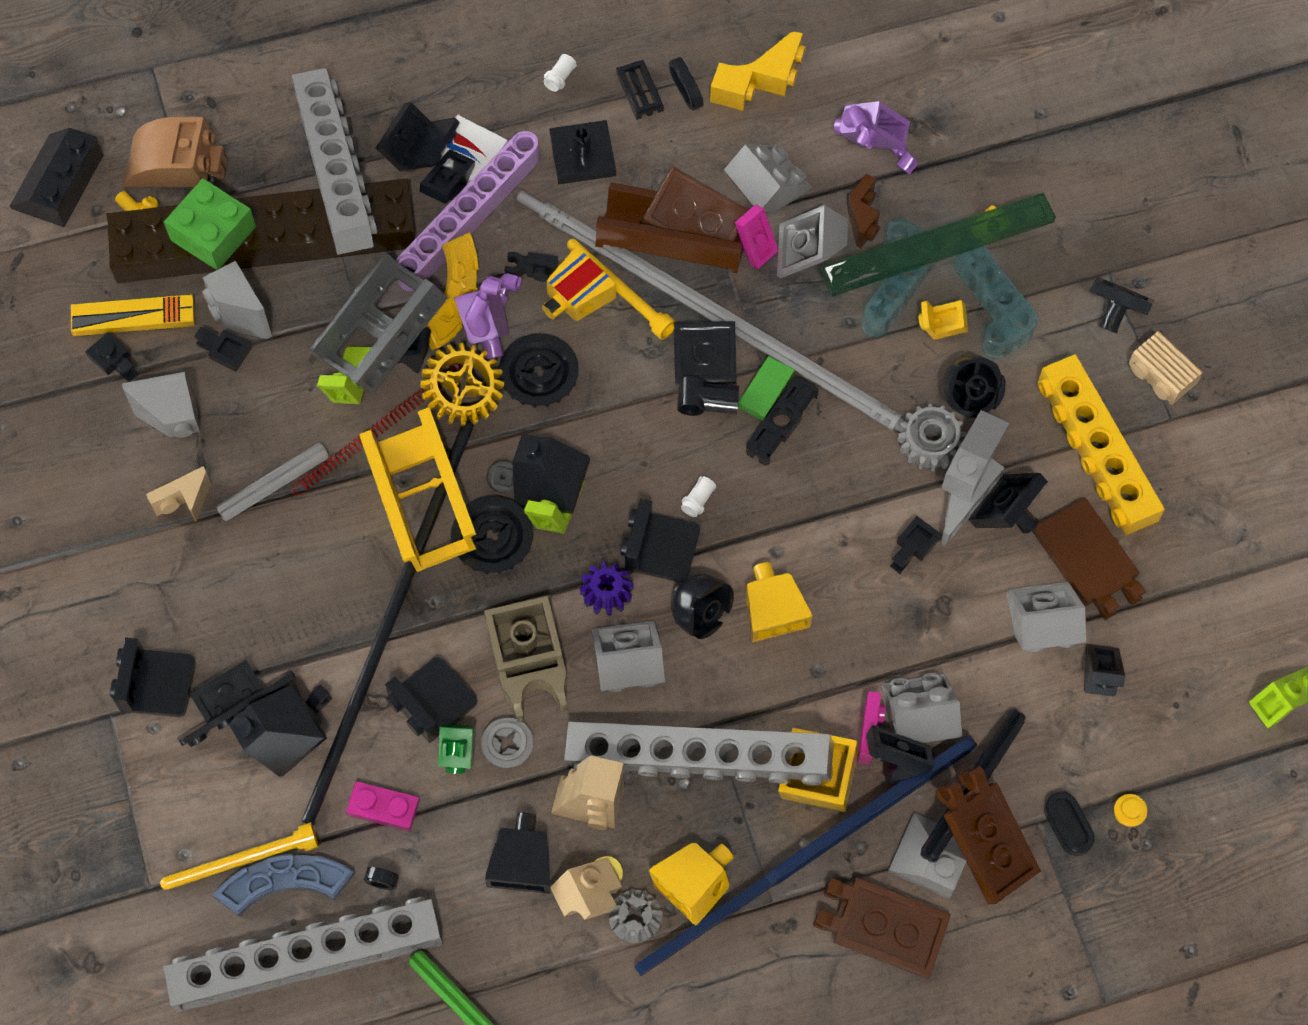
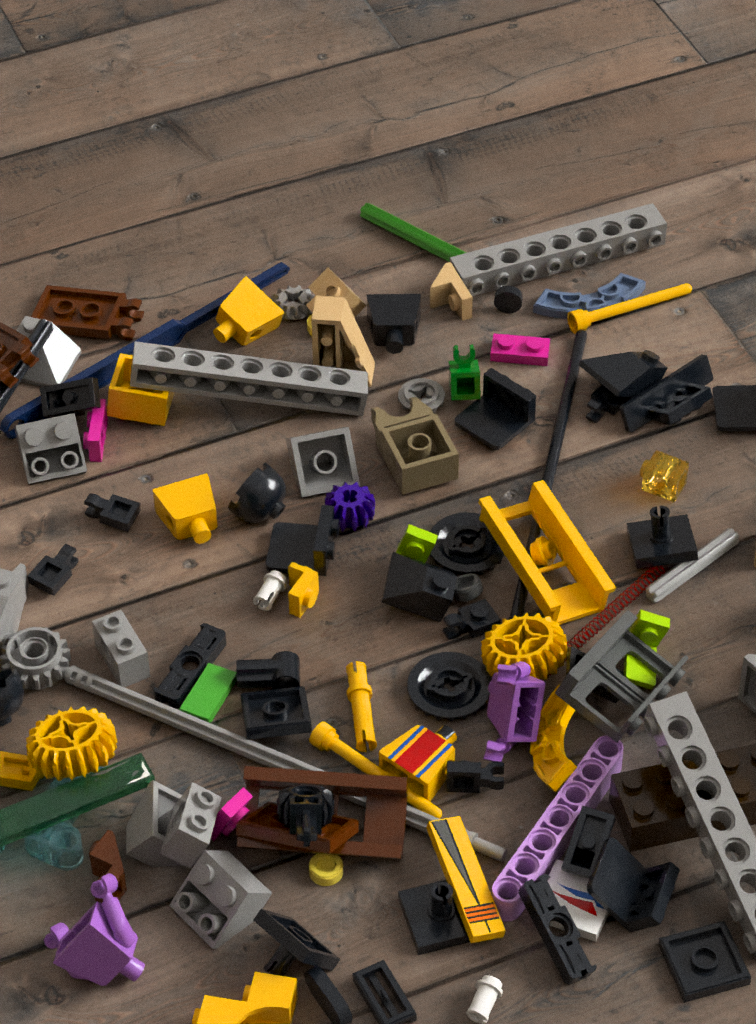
camera: 175 degrees right, 20 degrees down
(270, 590) = (664, 475): none -> clear yellow brick
(296, 505) = (662, 539): none -> black tile
(373, 89) = (704, 961): none -> black tile
(418, 507) = (543, 551): none -> yellow plate
(448, 906) = (451, 290): none -> tan slope
(496, 123) = (564, 950): none -> black piece
(500, 443) = (473, 618): none -> black plate
(558, 163) = (466, 878): none -> yellow tile
(624, 366) = (359, 695): none -> yellow pin
(663, 485) = (304, 588): none -> yellow bracket
(690, 189) = (305, 810): none -> black gear
(707, 119) = (295, 944): none -> black tile
(790, 214) = (191, 825): none -> light grey brick
(848, 435) = (121, 648): none -> light grey brick
(850, 612) = (115, 512): none -> black plate
(898, 313) = (71, 743): none -> yellow gear

